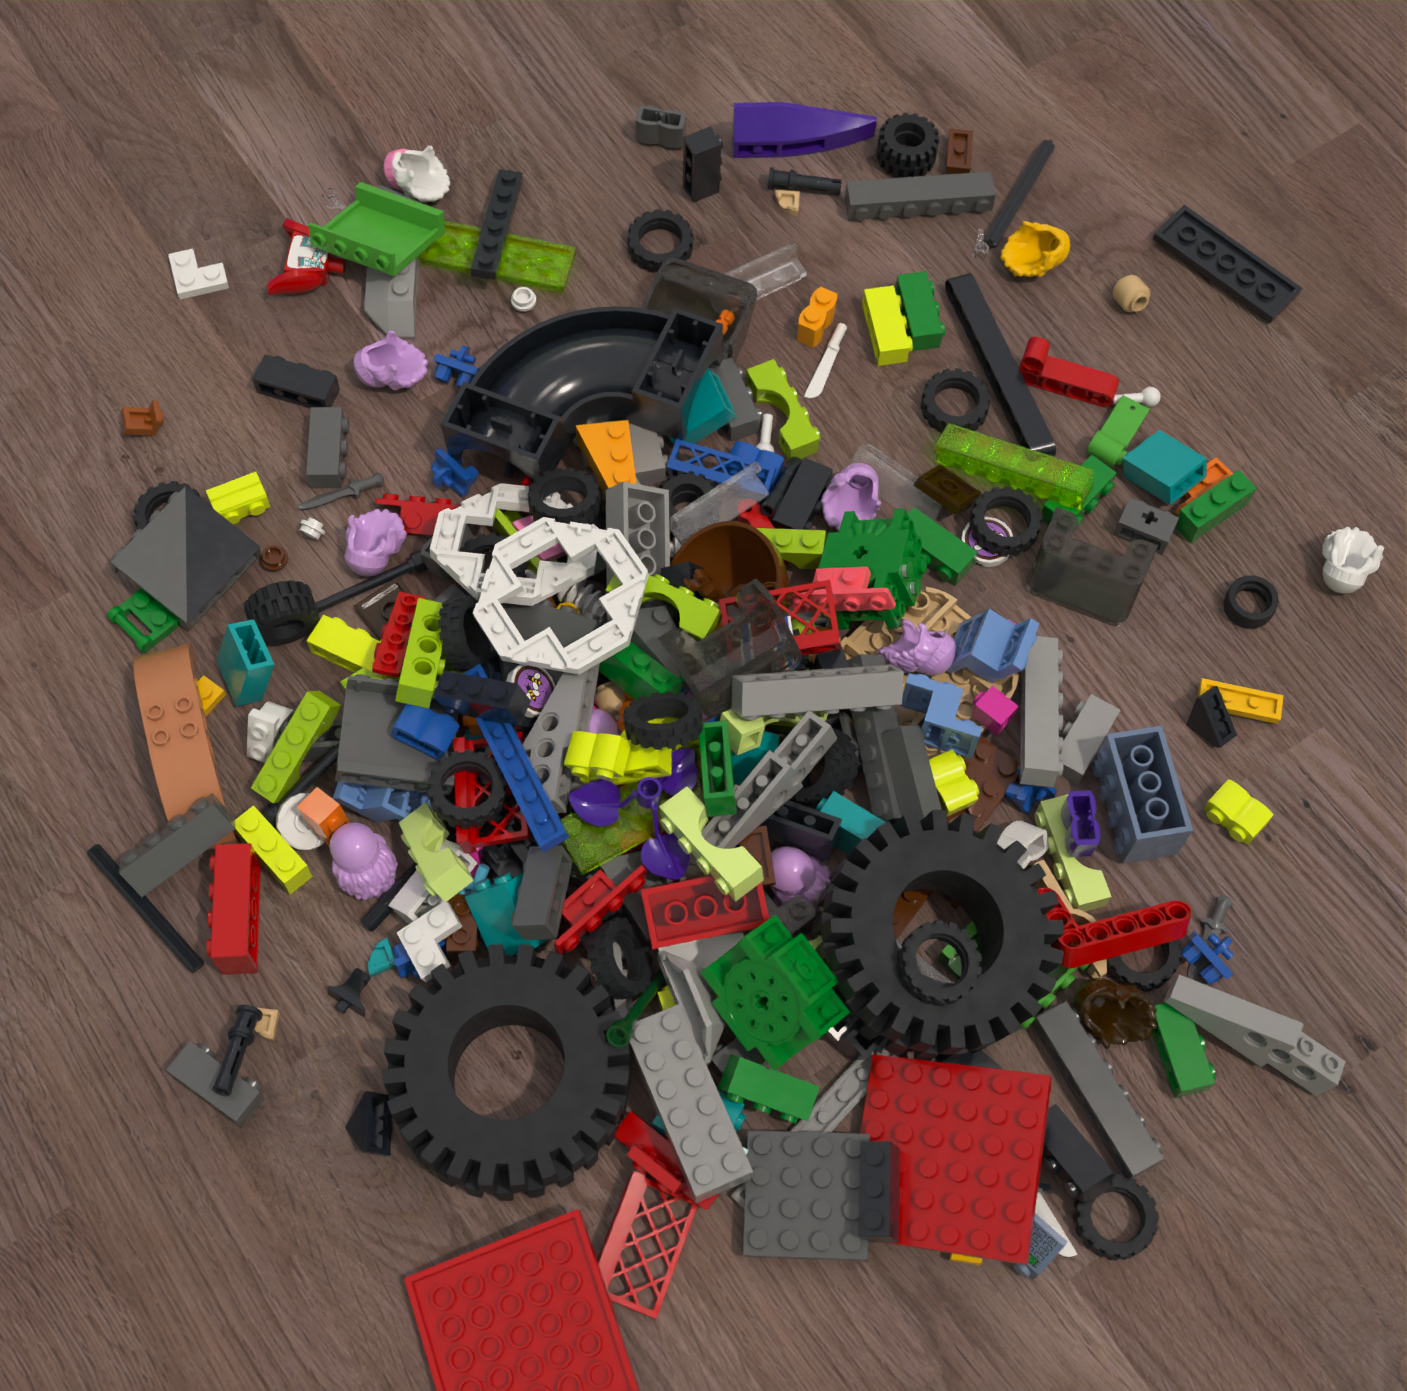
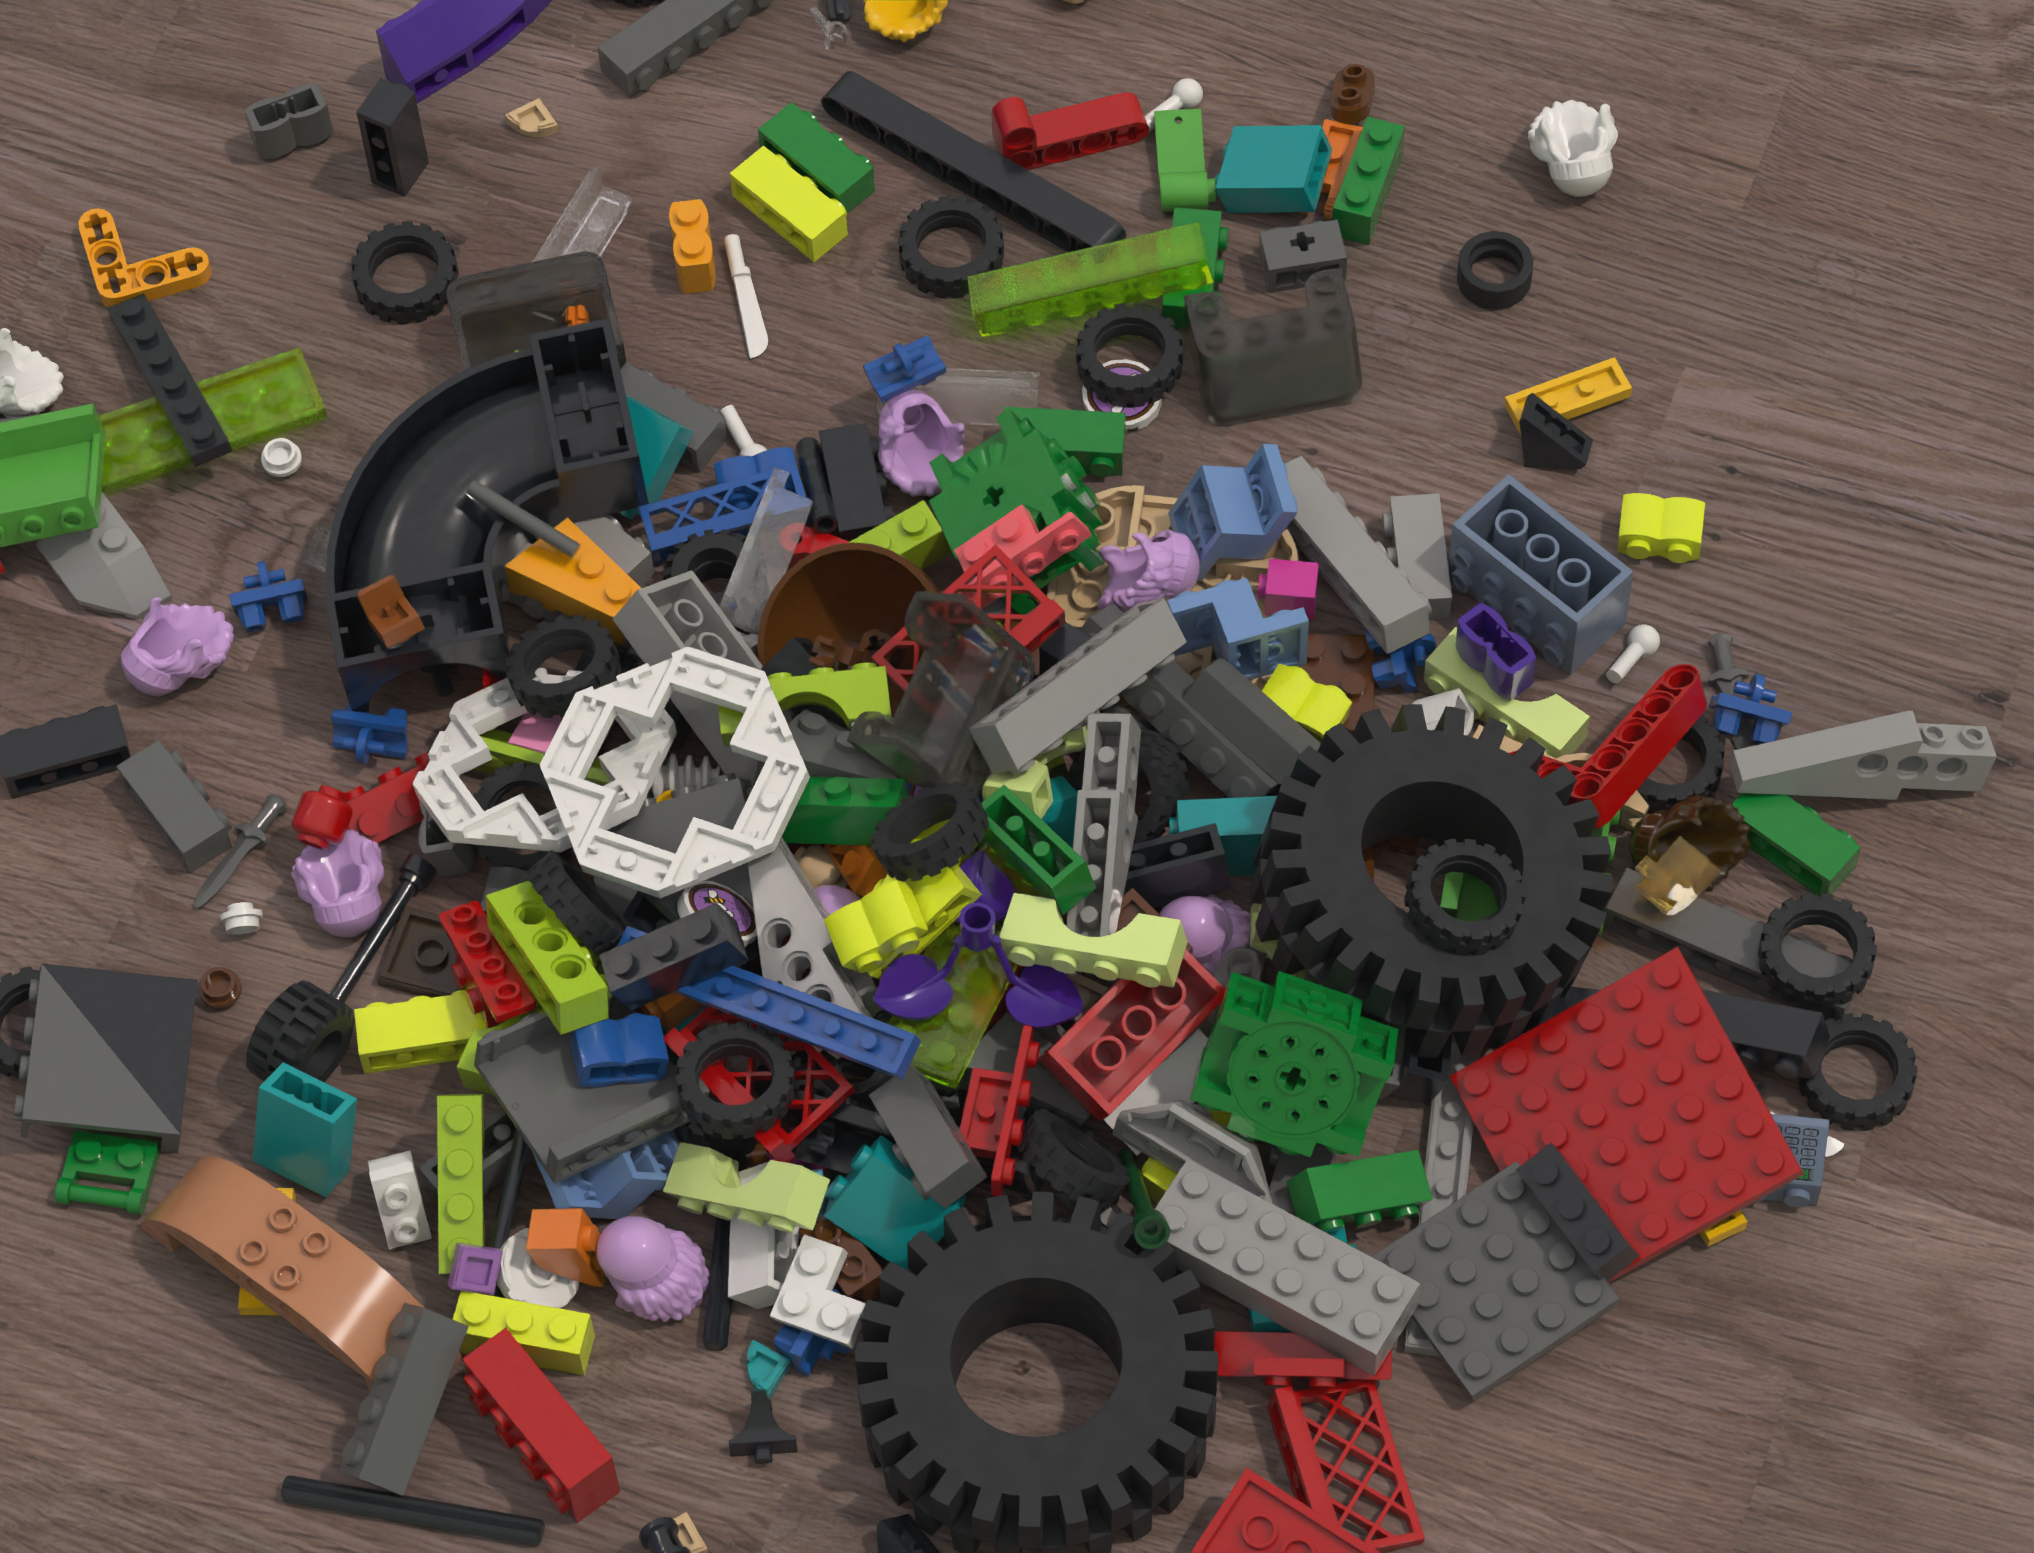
camera: 30 degrees left, 5 degrees down
(239, 498) = (113, 937): neon yellow brick -> none
(267, 798) = (475, 1268): none -> medium lavender tile
(384, 501) = (322, 818): none -> red head
(485, 410) = (389, 611): none -> dark orange bracket
(525, 160) = (132, 276): none -> light orange beam
(599, 405) = (523, 519): none -> dark grey bar
(770, 386) = (704, 370): lime arch -> none
(792, 181) = (519, 89): black pin -> none
(872, 451) = (904, 368): none -> blue hips
(947, 489) = (1027, 360): dark brown tile -> none
(1088, 1028) = (1676, 877): none -> clear yellow brick
(1158, 1105) = (1828, 913): none -> black tyre
(1178, 871) = (1641, 641): none -> white bar
(1242, 452) = (1352, 94): none -> reddish brown plate

